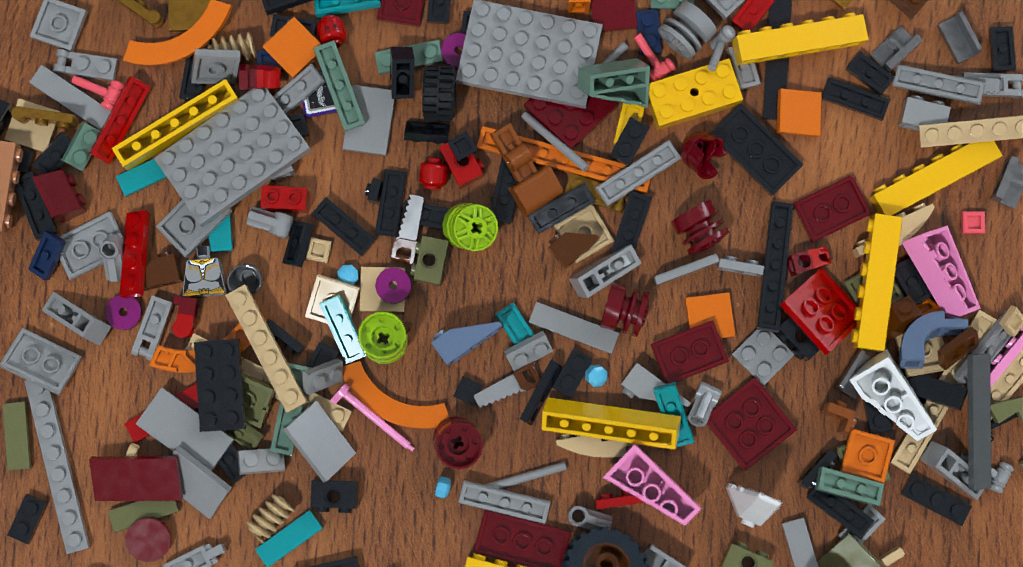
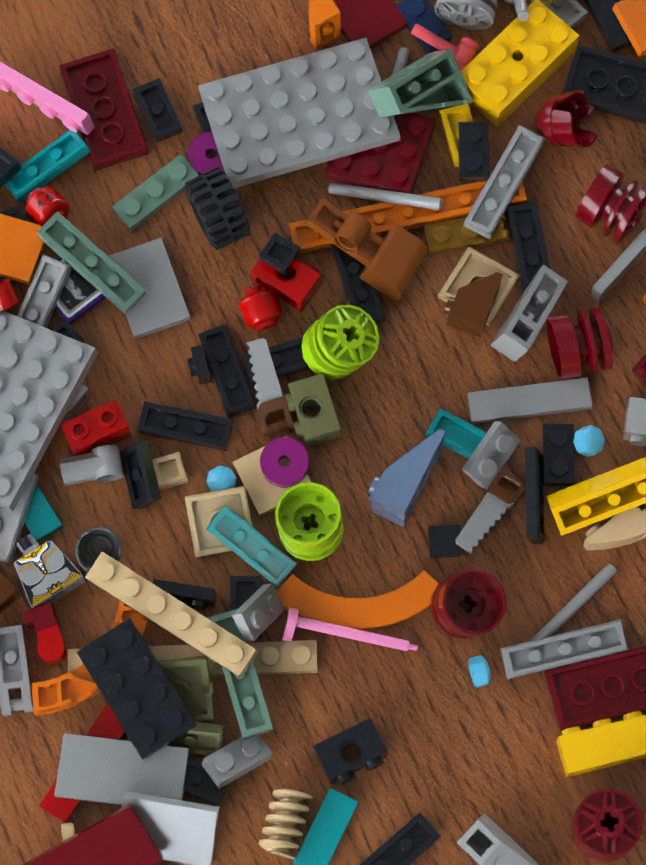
camera: 25 degrees left, 10 degrees down
(319, 441) = (297, 692): light grey tile -> none
(402, 72) = (159, 208): black brick -> none
(427, 132) = (225, 264): black plate -> none
(562, 208) = (436, 268): black tile -> none

